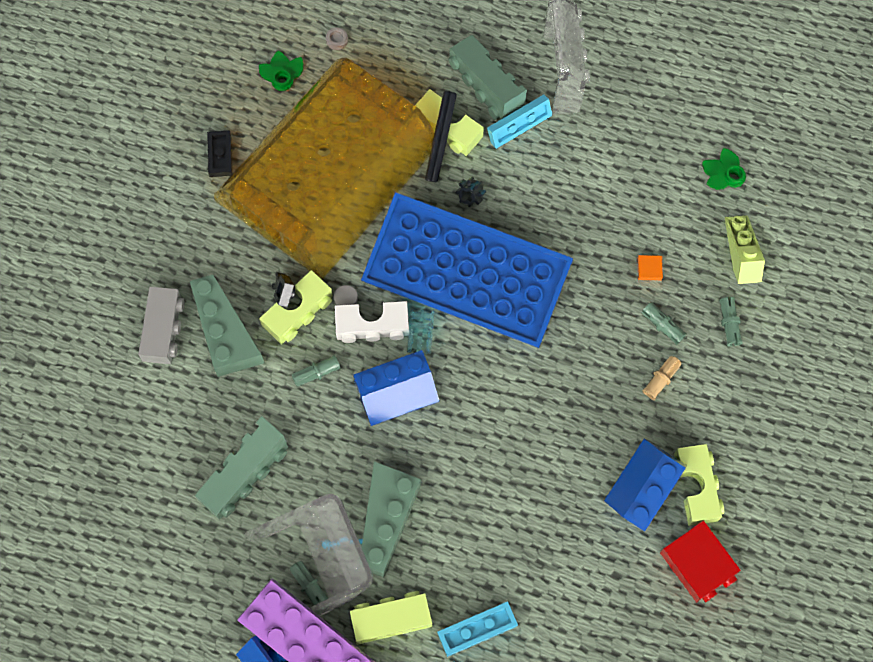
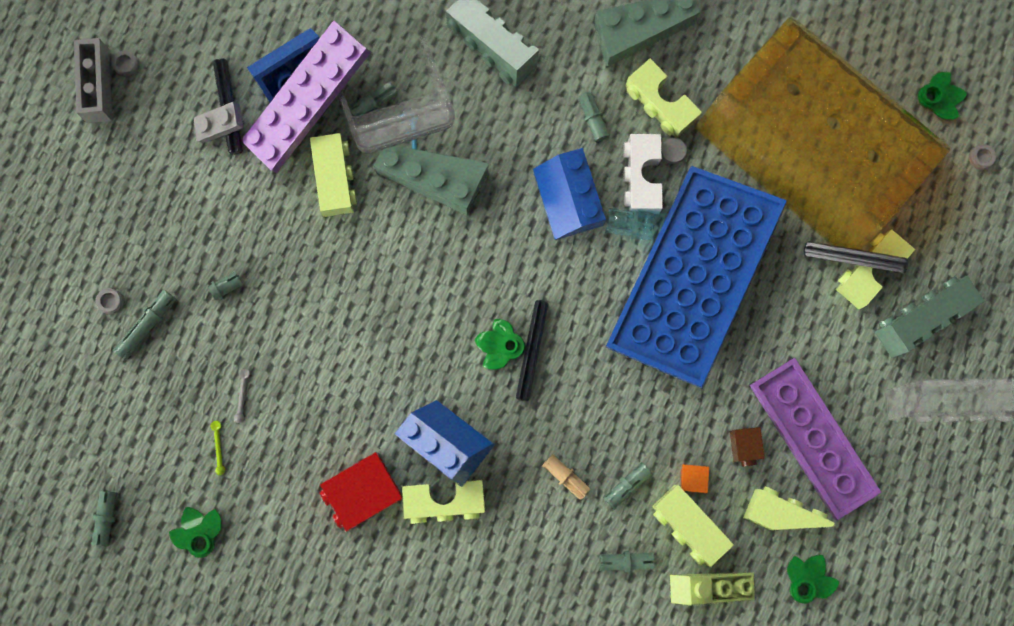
camera: 90 degrees right, 10 degrees up
(219, 153) = (842, 28): black plate -> none
(283, 289) = (680, 85): black plate -> none
(466, 196) = (789, 287): black gear -> none
(477, 629) = (315, 259): medium azure plate -> none
(519, 121) = (875, 349): medium azure plate -> none
(543, 448) = (496, 345): none -> green plate
(548, 415) = (532, 350): none -> black axle
(602, 169) = (815, 439): none -> medium lavender plate
(616, 223) = (747, 446): none -> reddish brown brick
(674, 193) = (776, 513): none -> yellowish green slope
(693, 267) = (691, 526): none -> yellowish green brick

